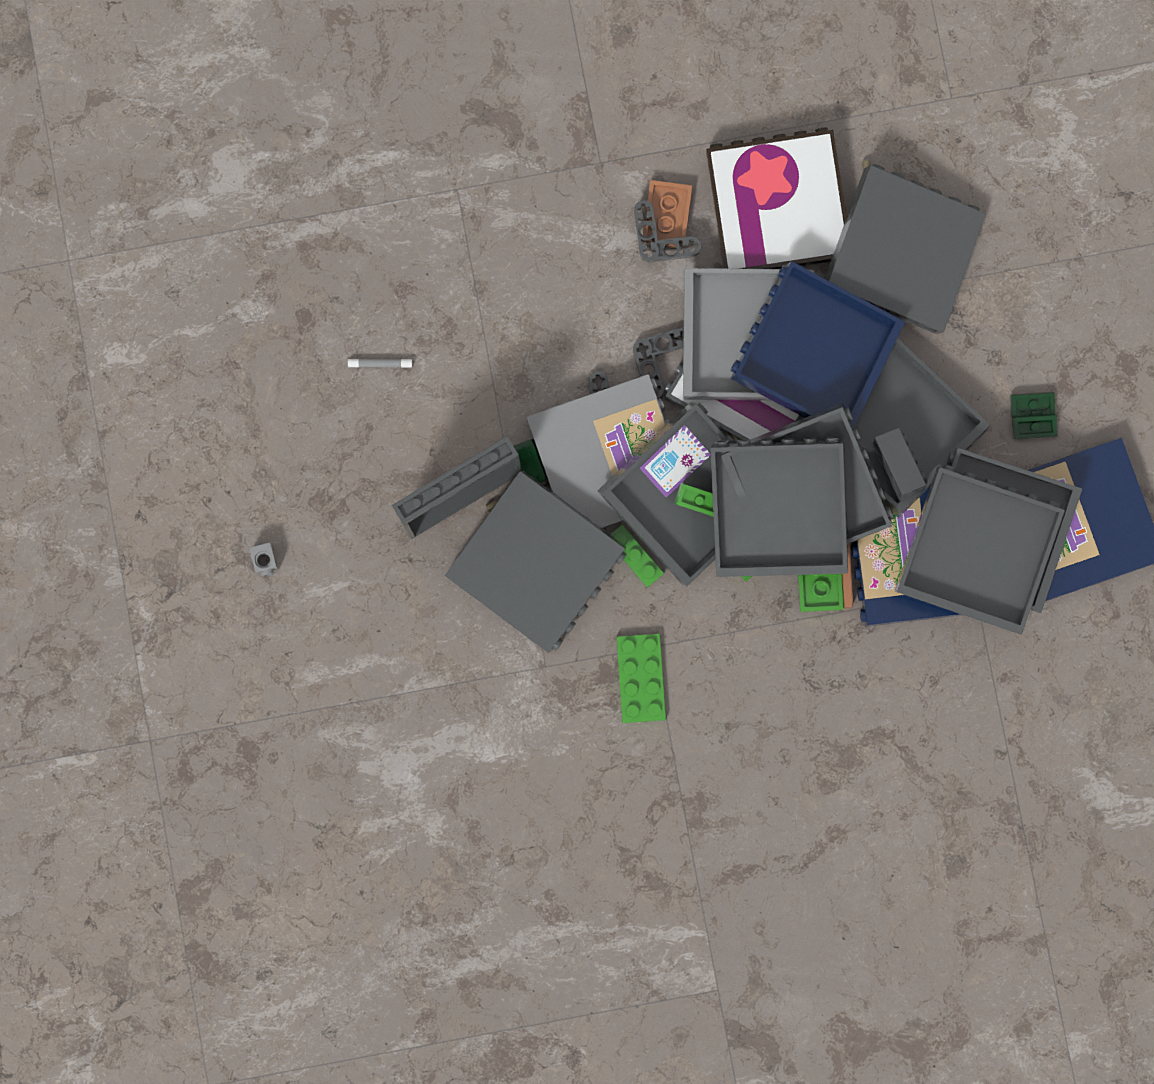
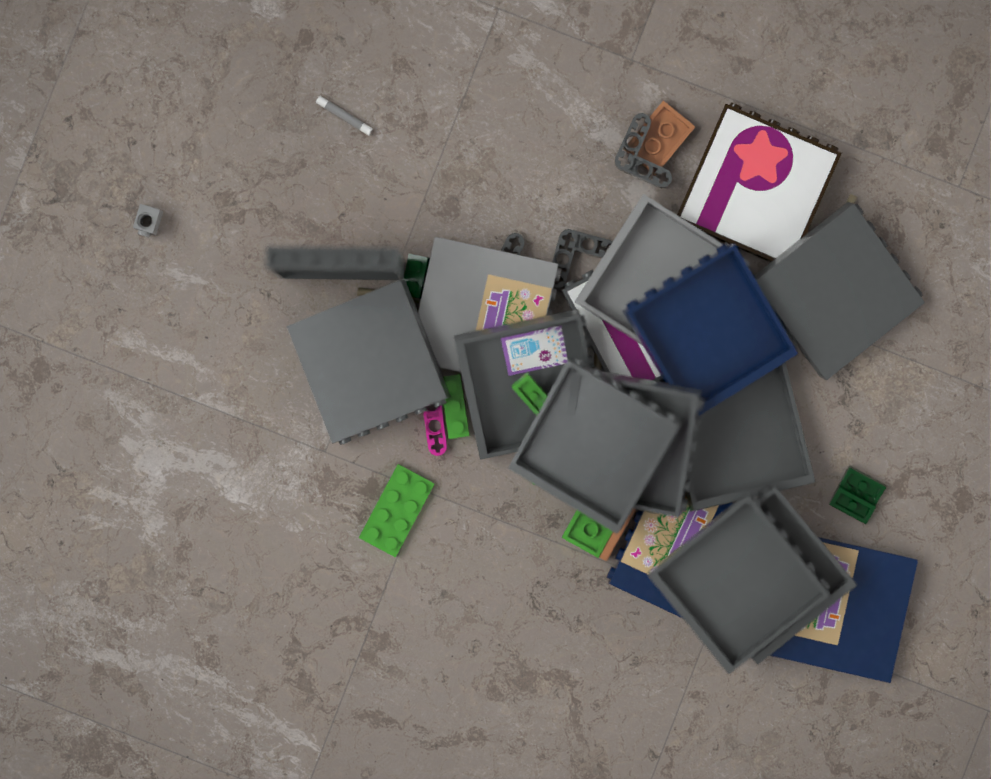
camera: 30 degrees right, 5 degrees up
(623, 573) = (428, 417): none -> dark pink beam
(900, 464) = (718, 469): dark grey brick -> none

